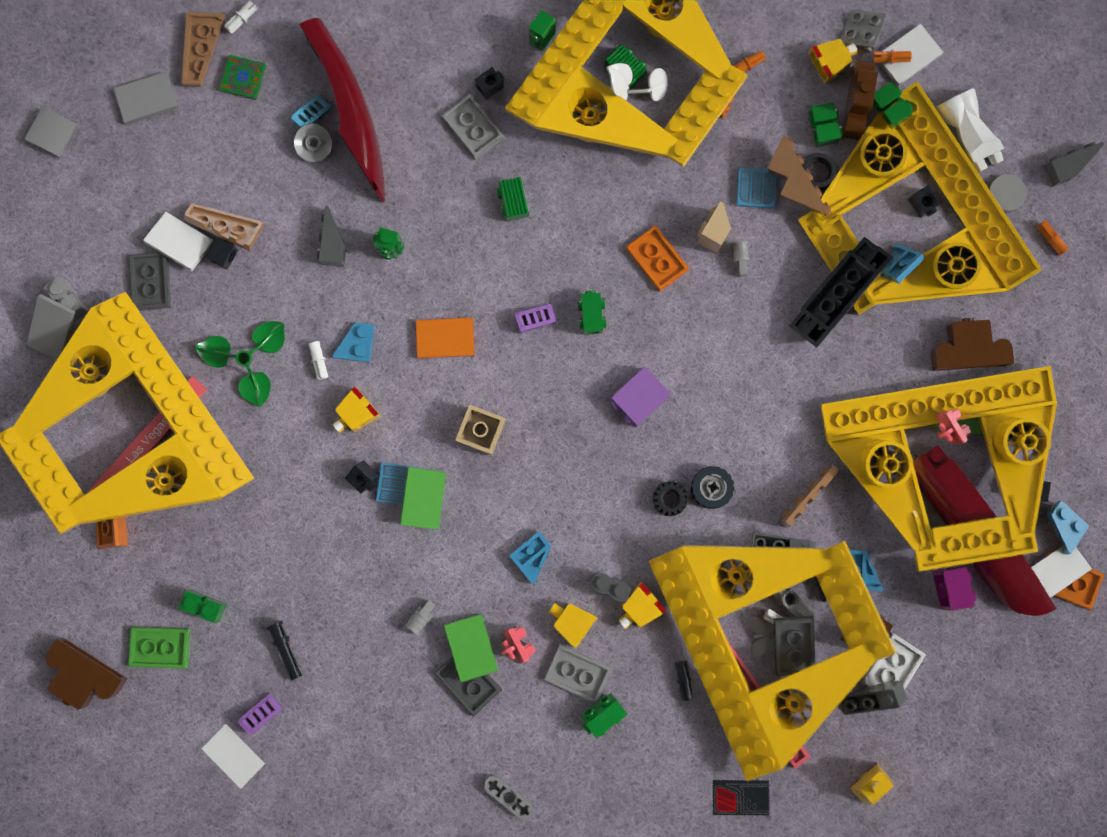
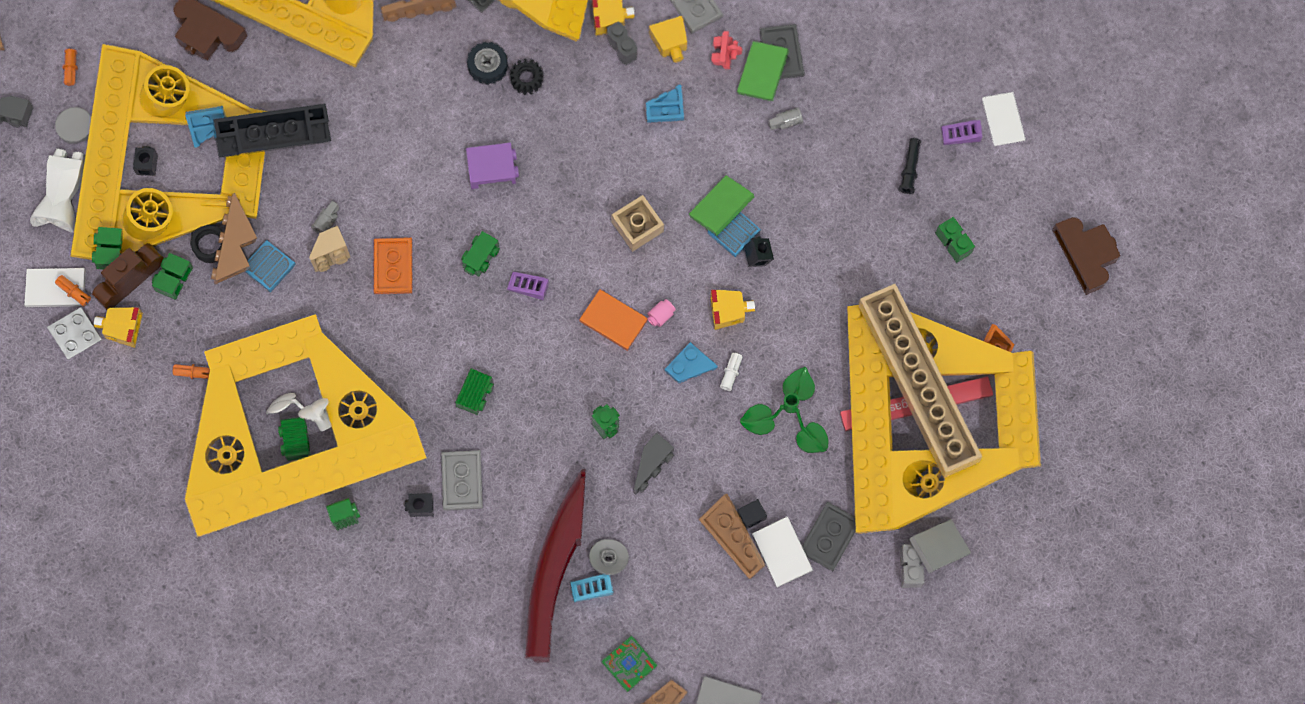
camera: 150 degrees left, 10 degrees down
(139, 440) = (920, 381): none -> tan brick
(159, 647) = (1011, 235): bright green tile -> none
(408, 368) = (661, 313): none -> bright pink brick

